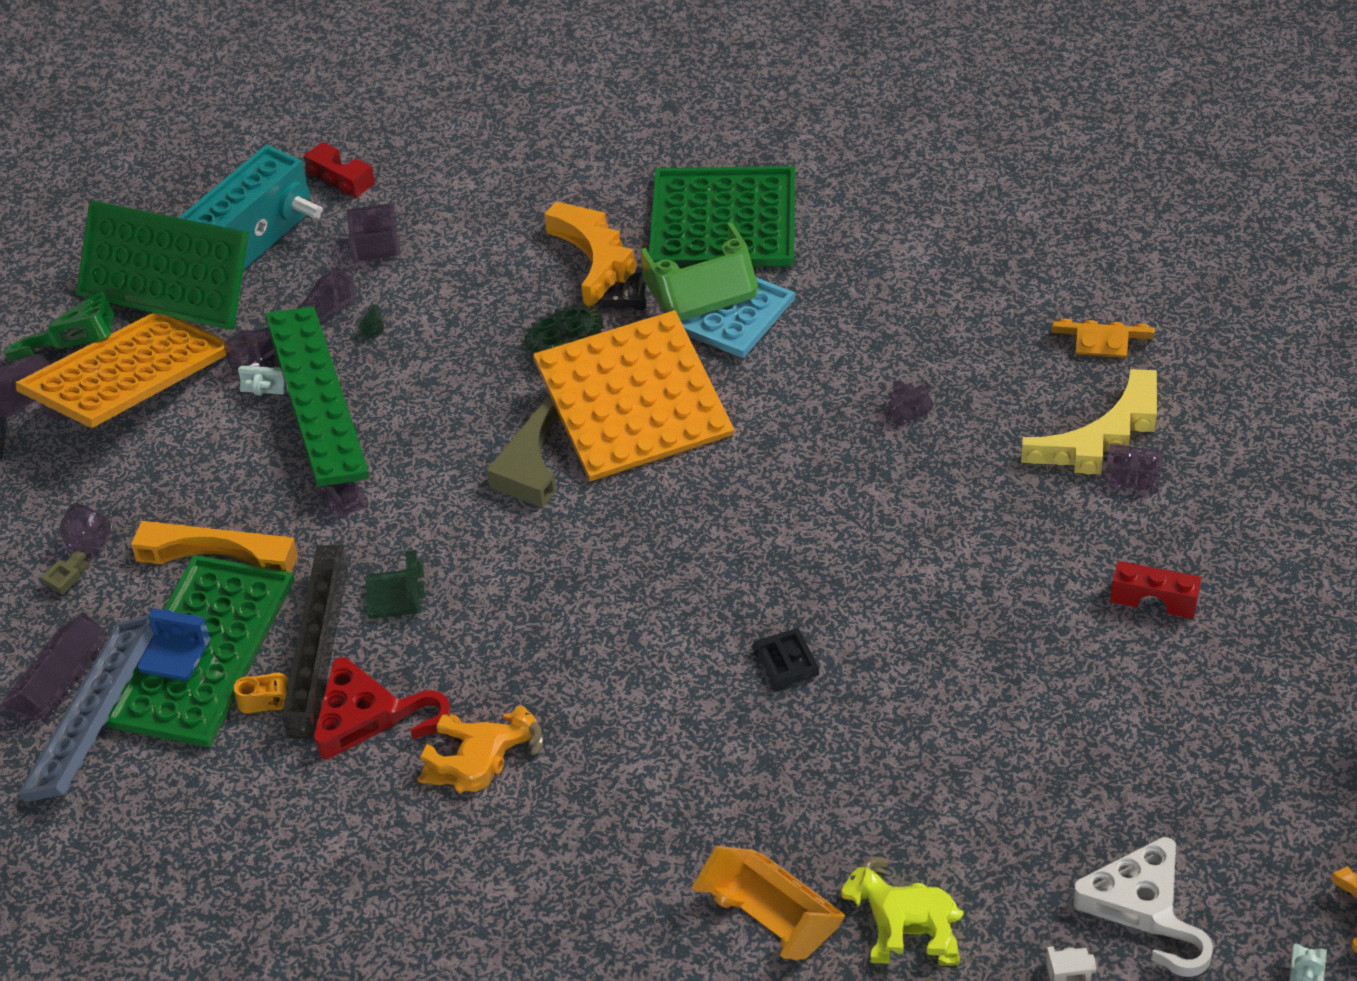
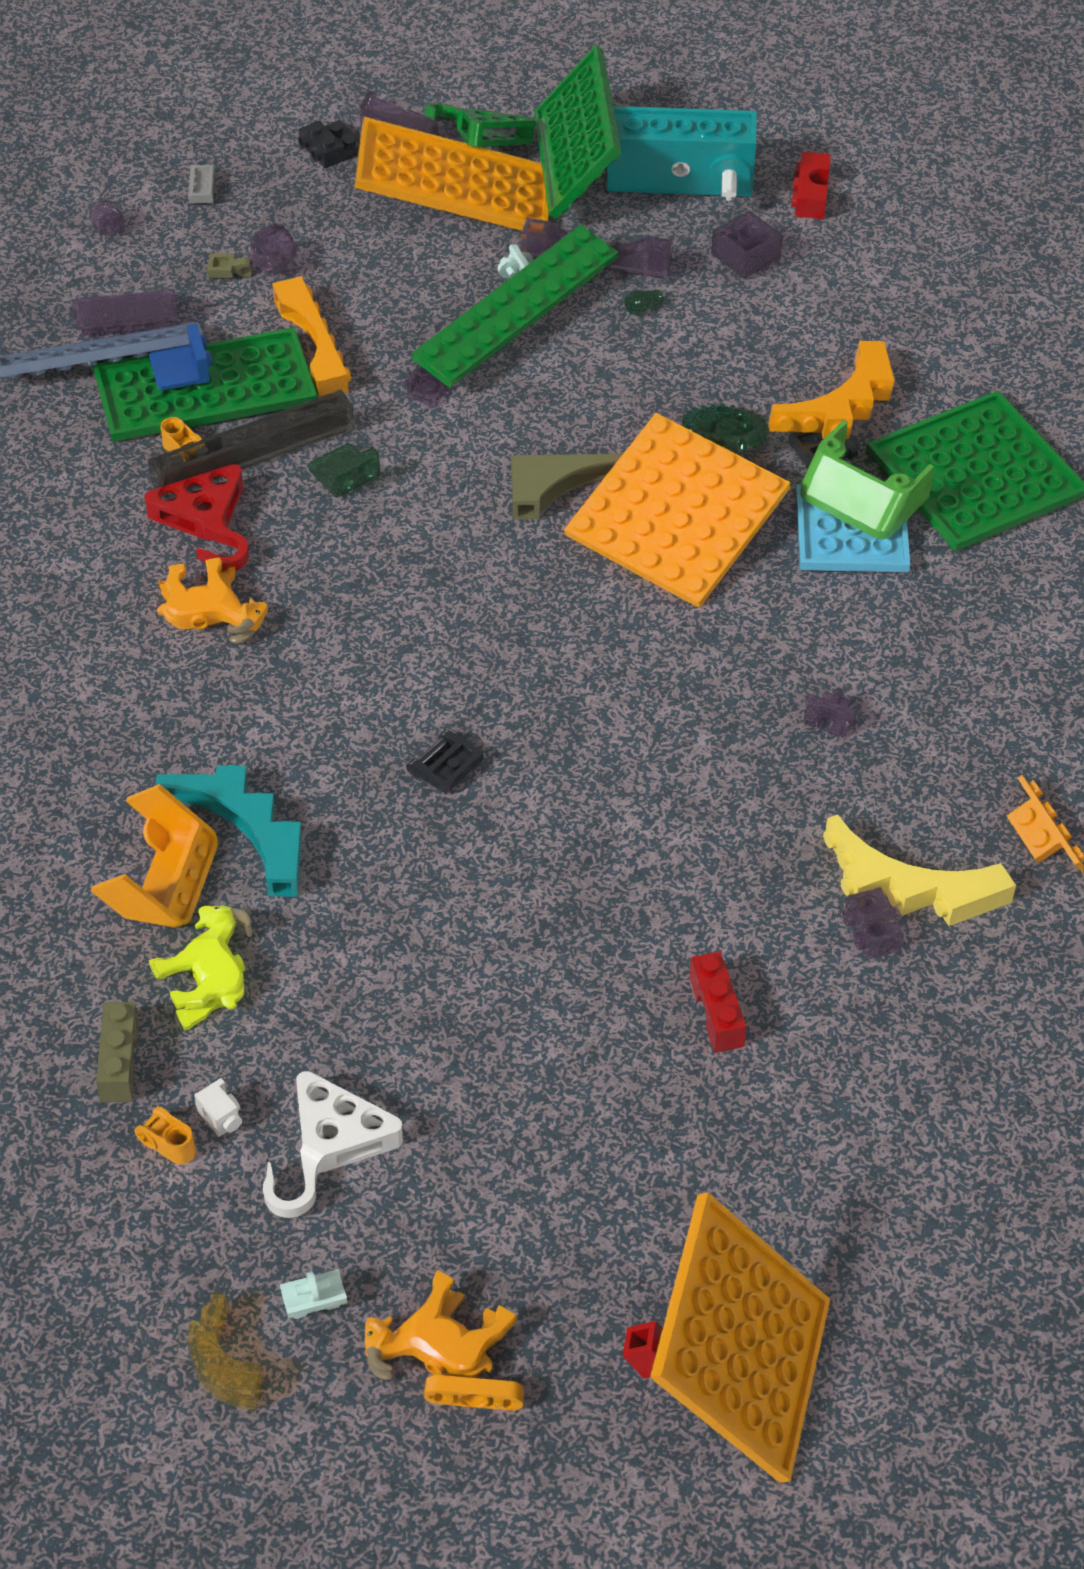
camera: 55 degrees right, 5 degrees up
(758, 813) = (252, 813): none -> teal arch

